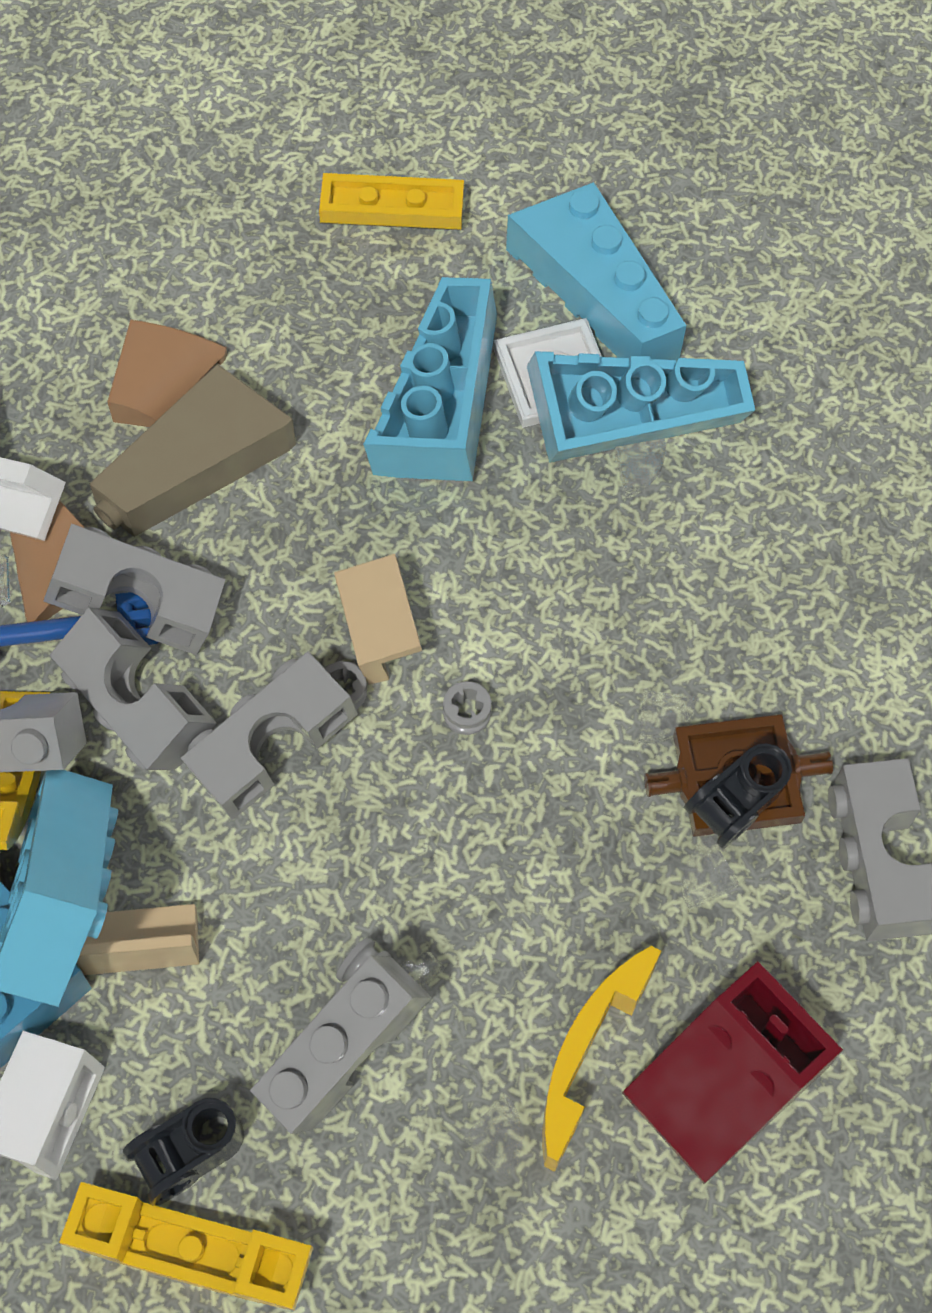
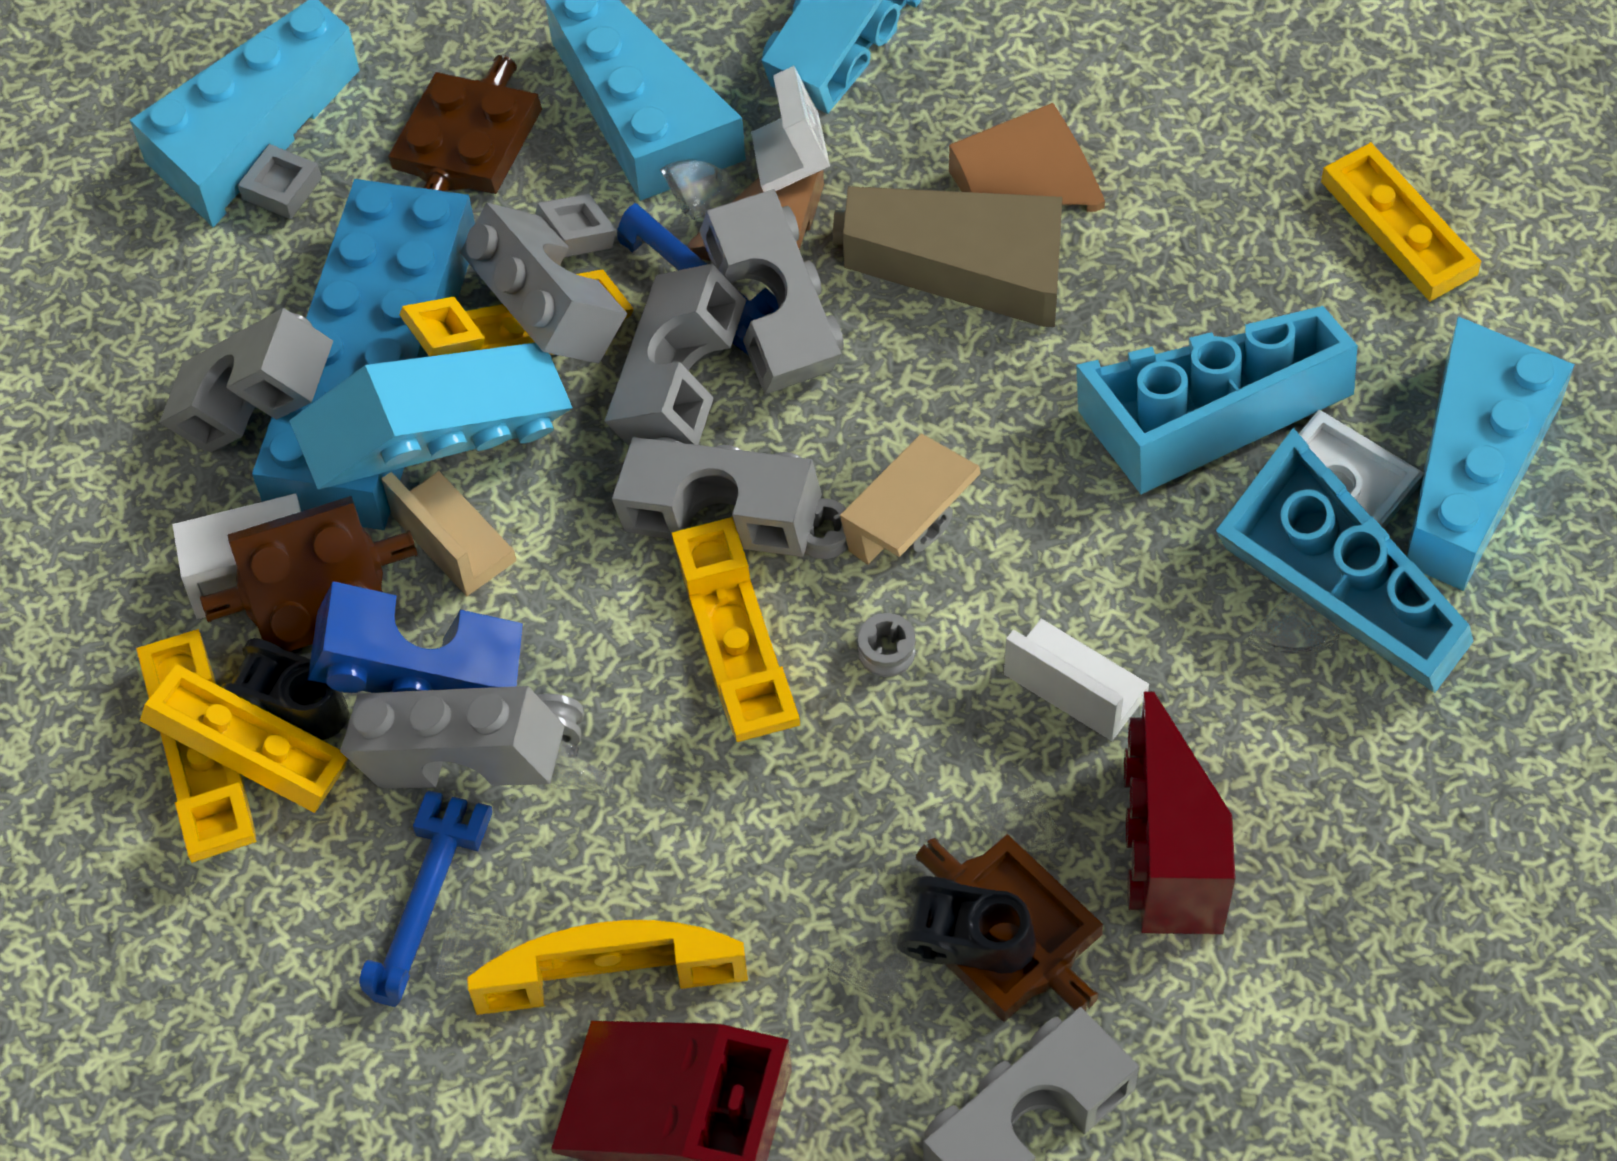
camera: 60 degrees right, 5 degrees down
(108, 1066) = (291, 564): none -> reddish brown plate
(210, 1203) = (244, 737): none -> yellow plate
(216, 1060) = (363, 650): none -> blue arch
(385, 801) = (734, 631): none -> yellow slope
(489, 1218) = (388, 981): none -> blue hinge
(582, 611) = (1073, 678): none -> white panel
(750, 620) = (1175, 830): none -> dark red slope

